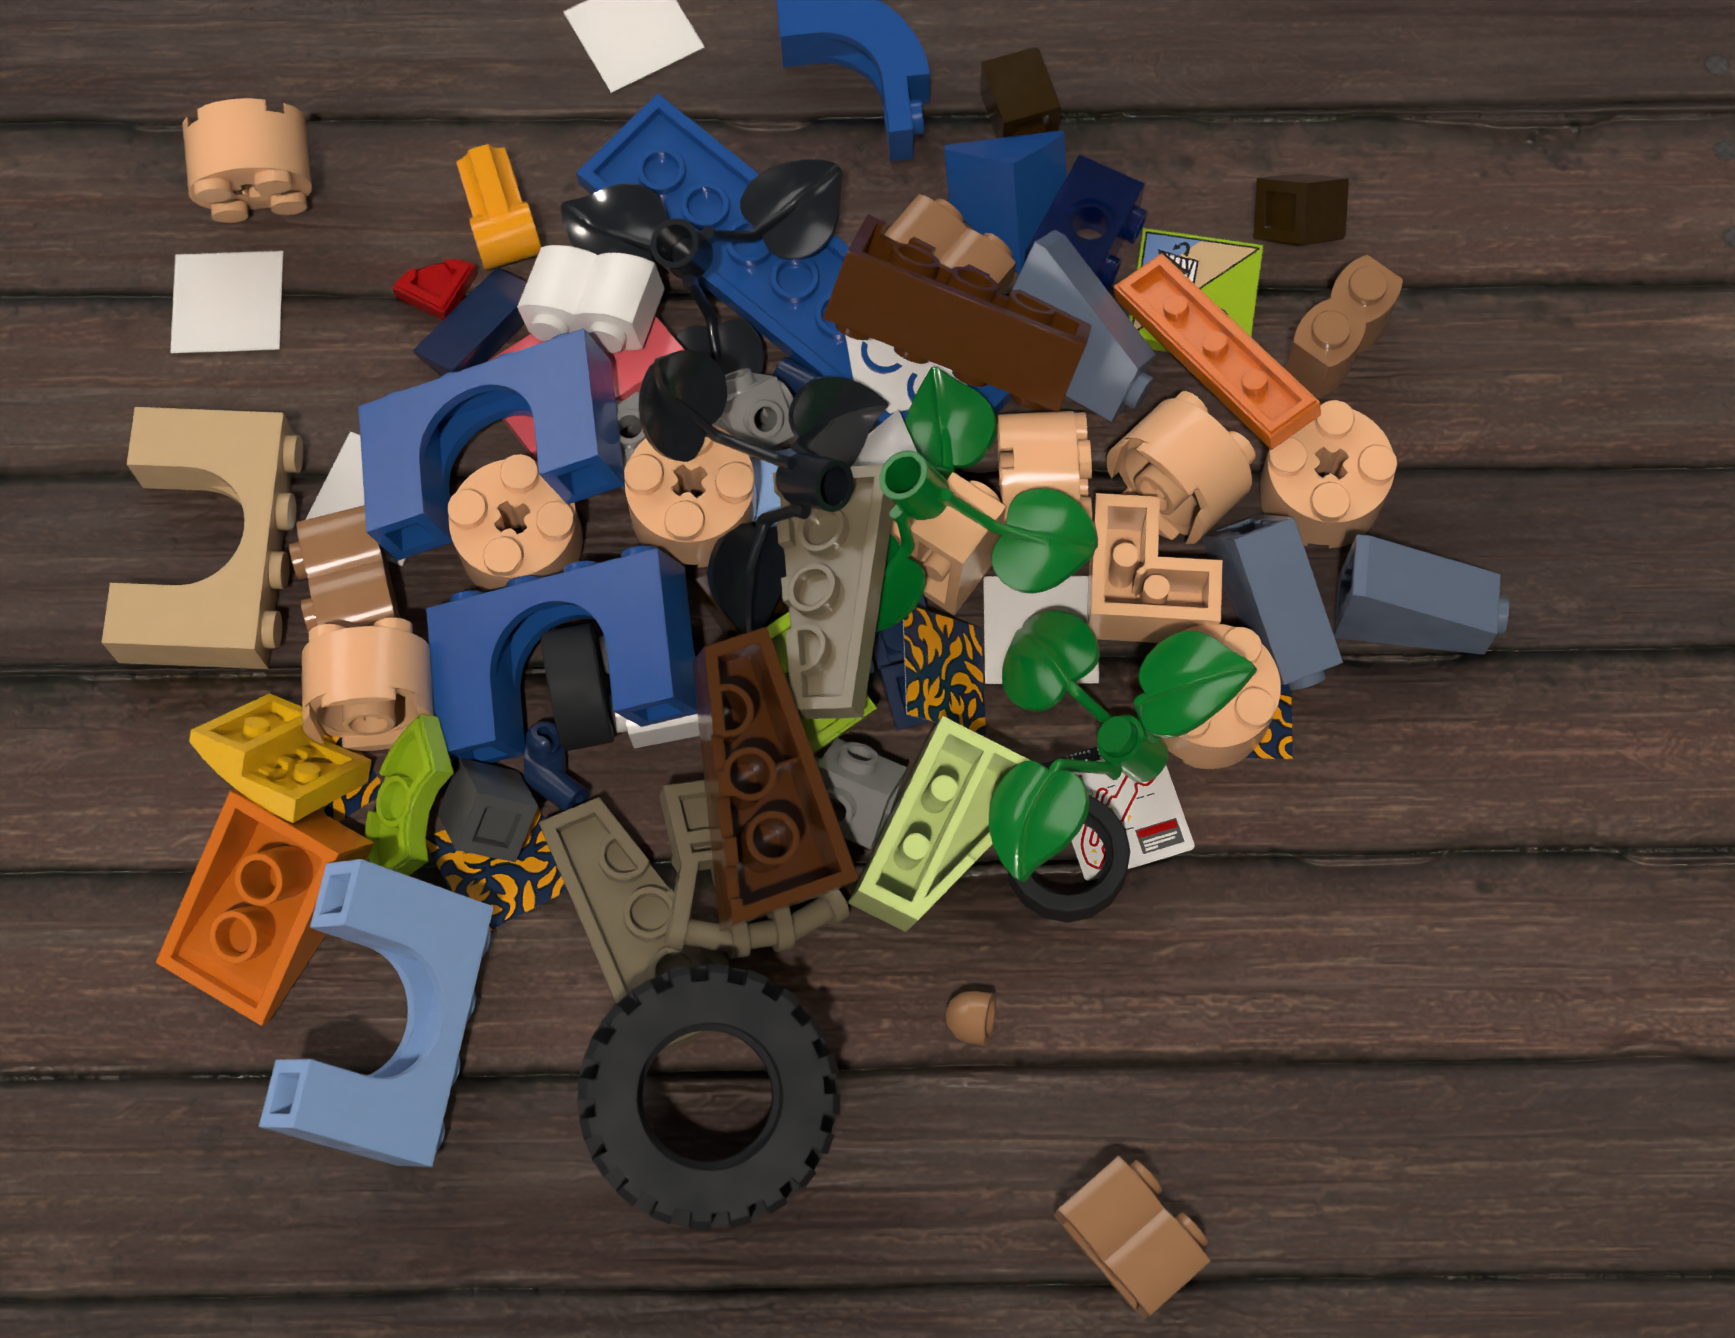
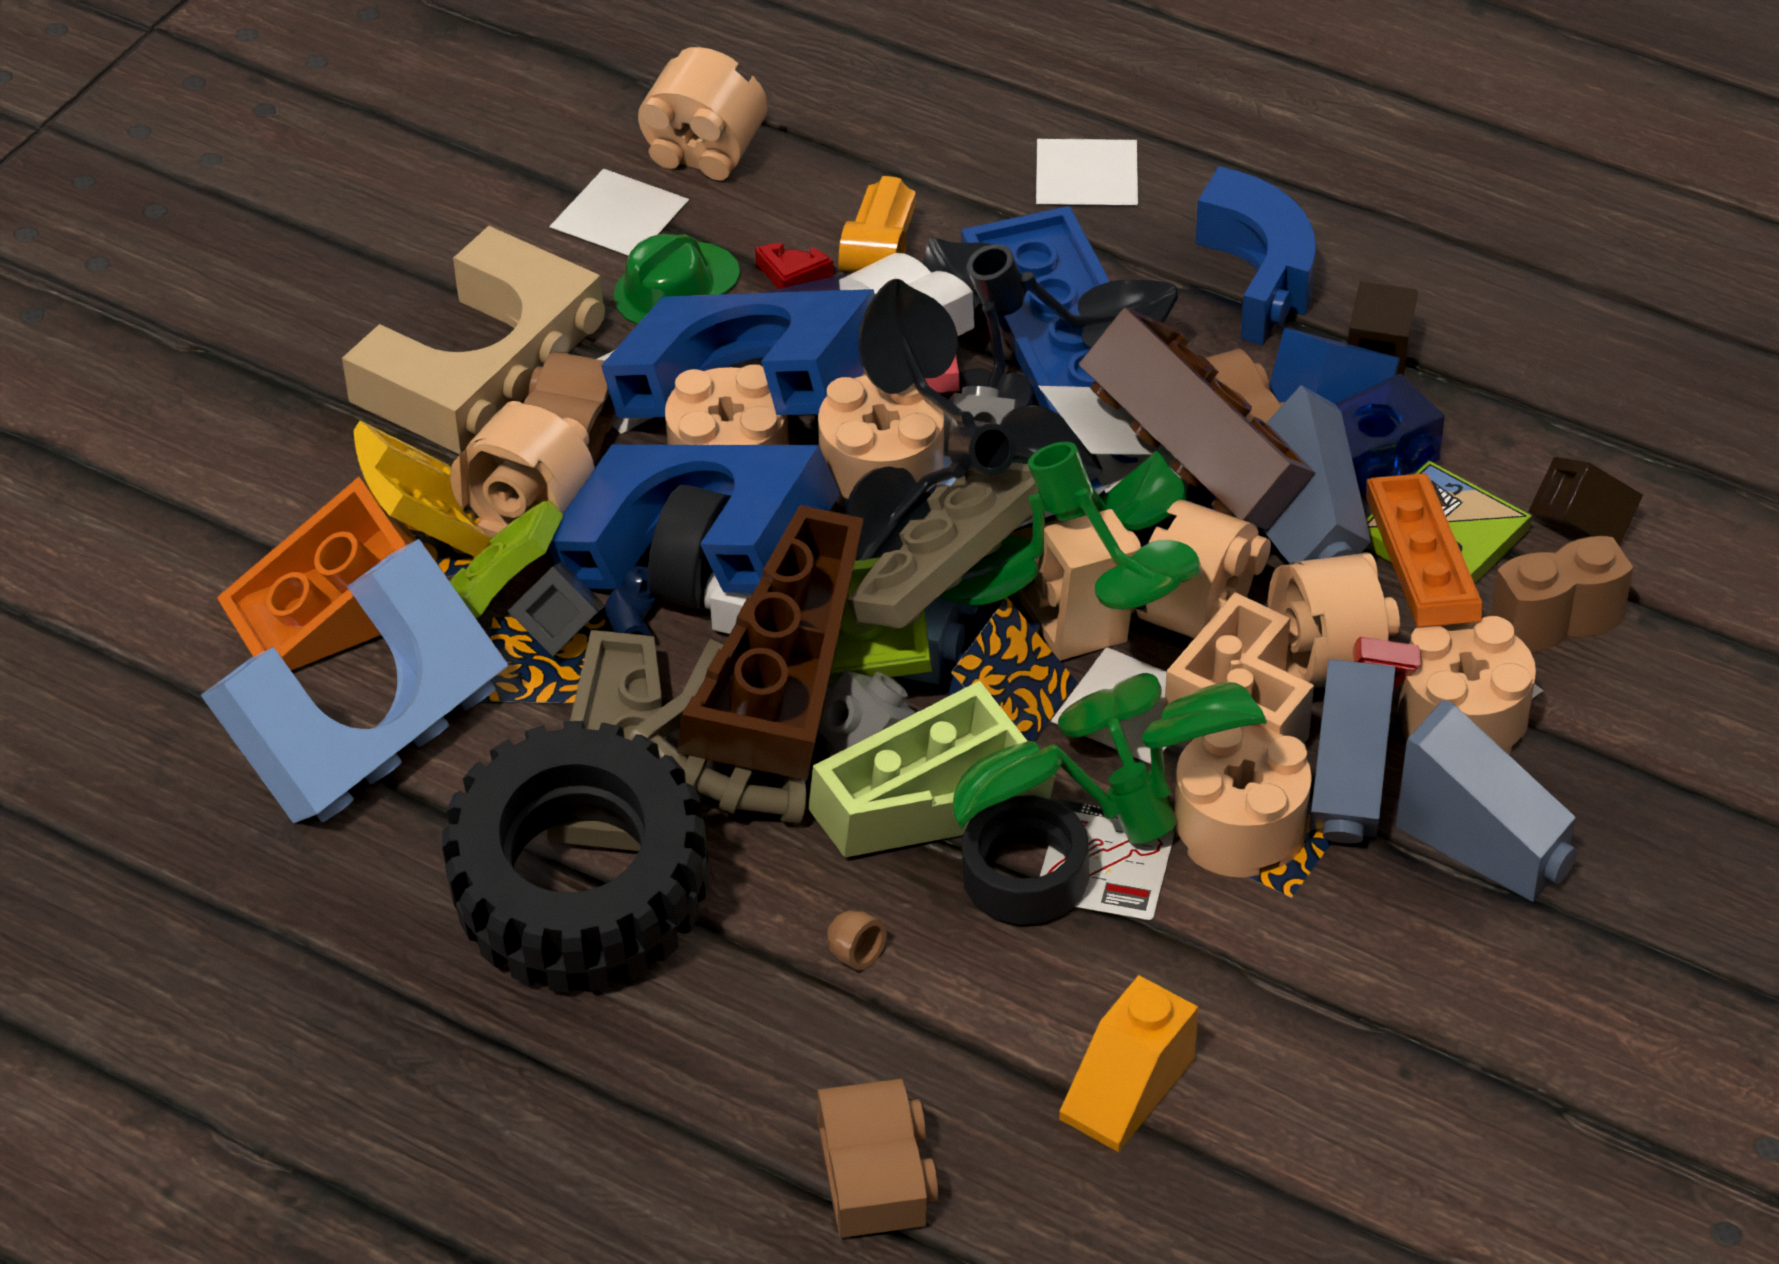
camera: 30 degrees right, 25 degrees down
(337, 360) = (672, 267): none -> green piece
(861, 364) = (1096, 423): none -> white sticker
(1266, 499) = (1382, 652): none -> tile
(1281, 1021) = (1131, 1063): none -> light orange slope

